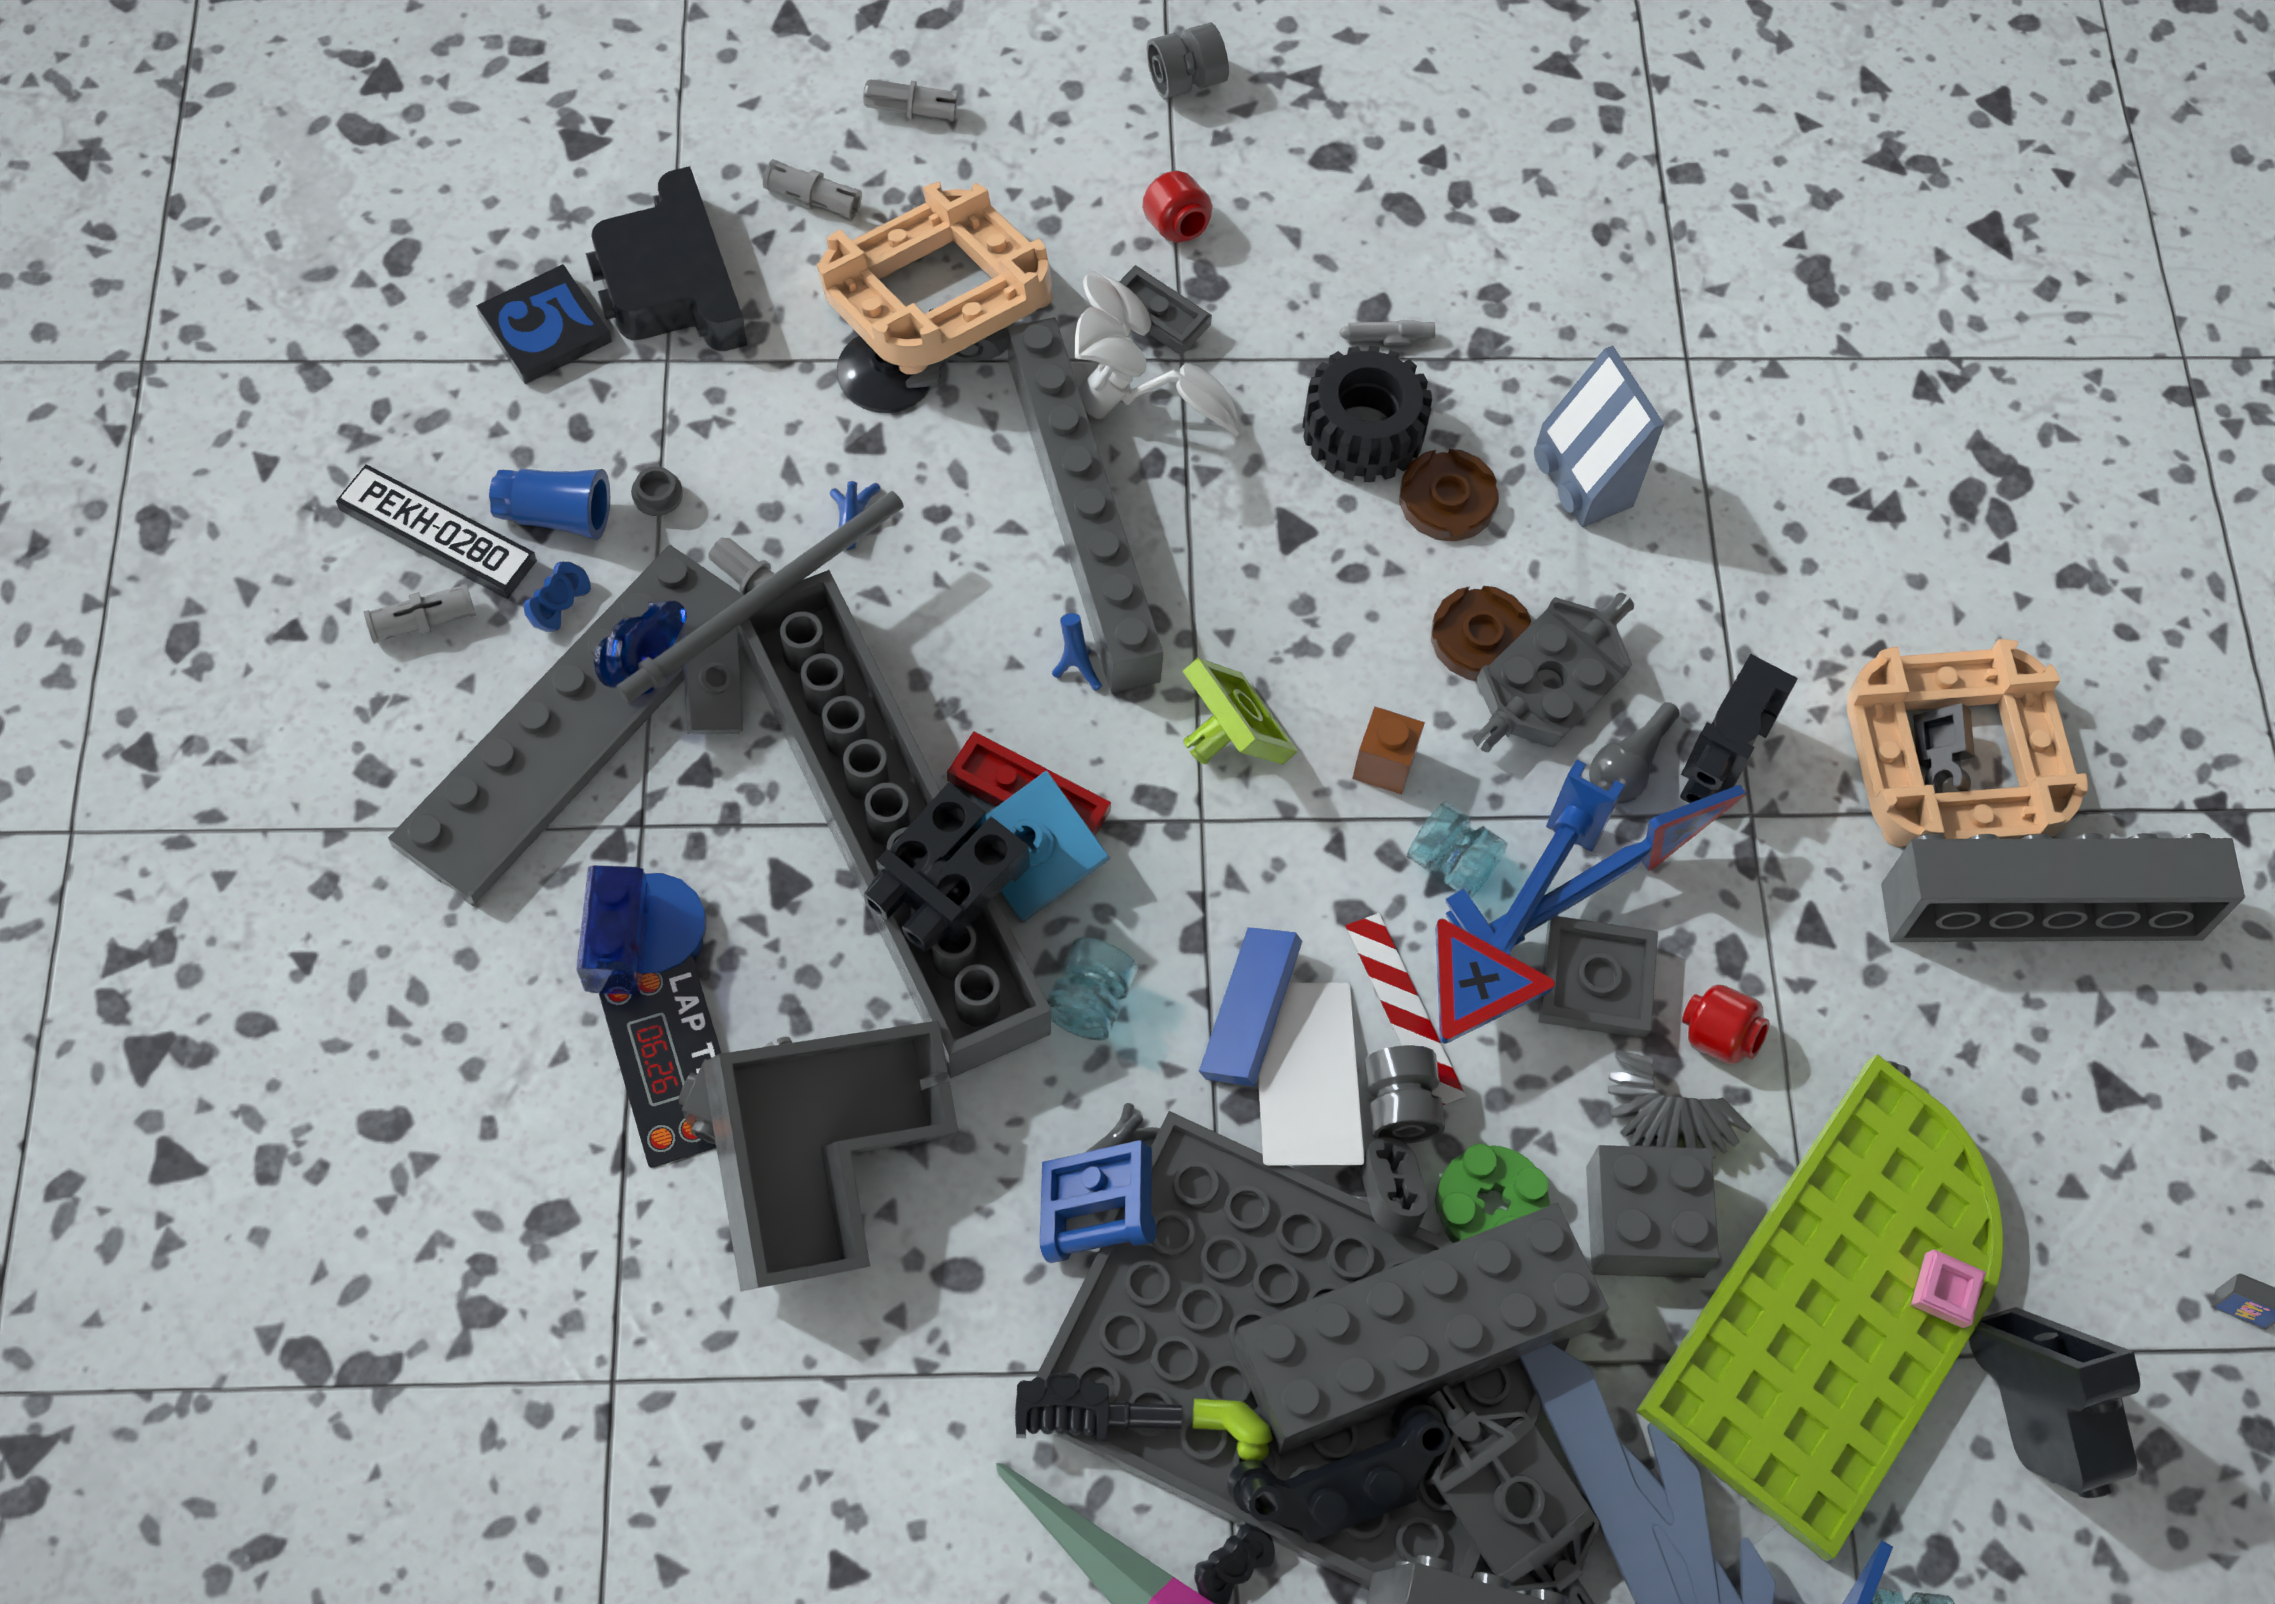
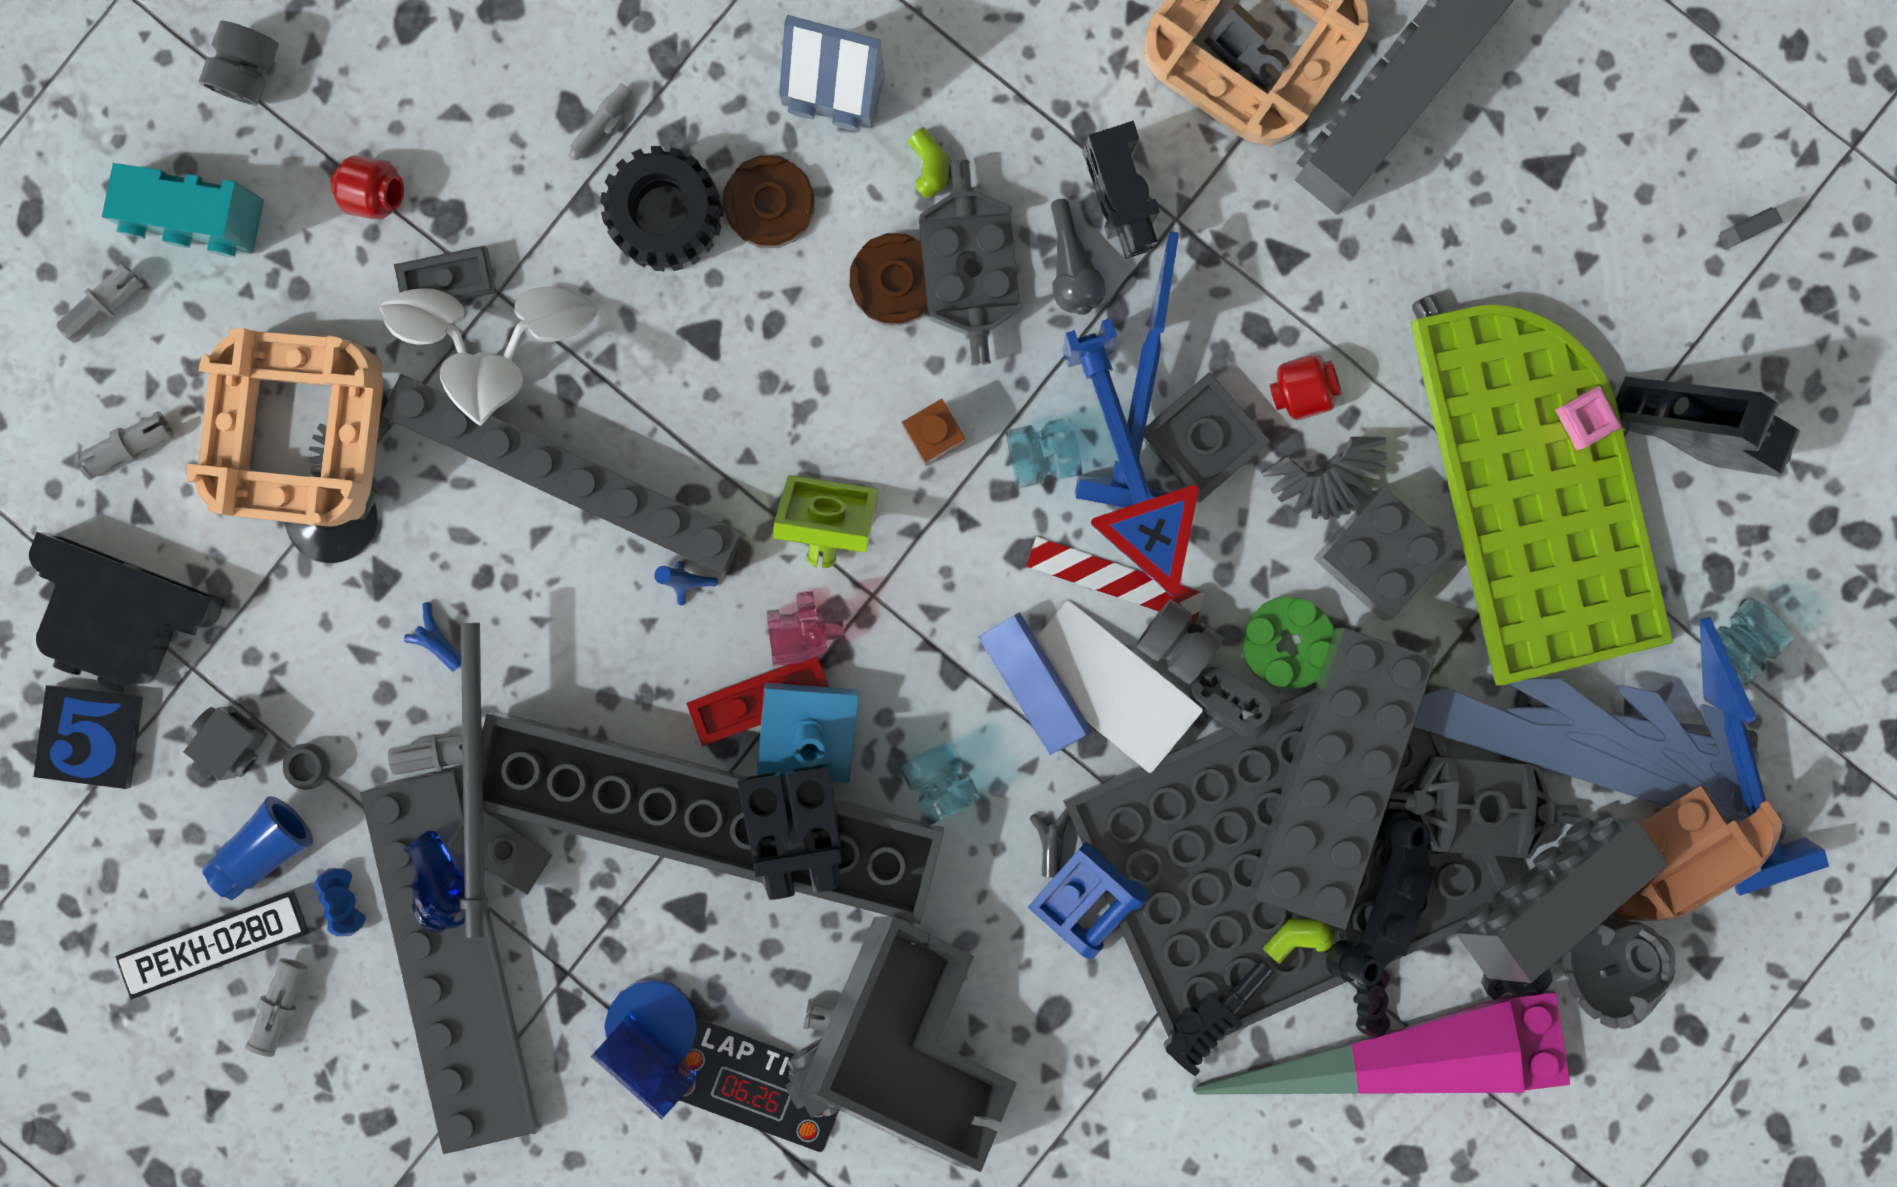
camera: 45 degrees left, 25 degrees up
(624, 416) = (223, 743): none -> dark grey brick
(1042, 100) = (182, 209): none -> teal wedge
(1119, 775) = (800, 634): none -> clear pink piece
(1601, 590) = (934, 166): none -> lime arm

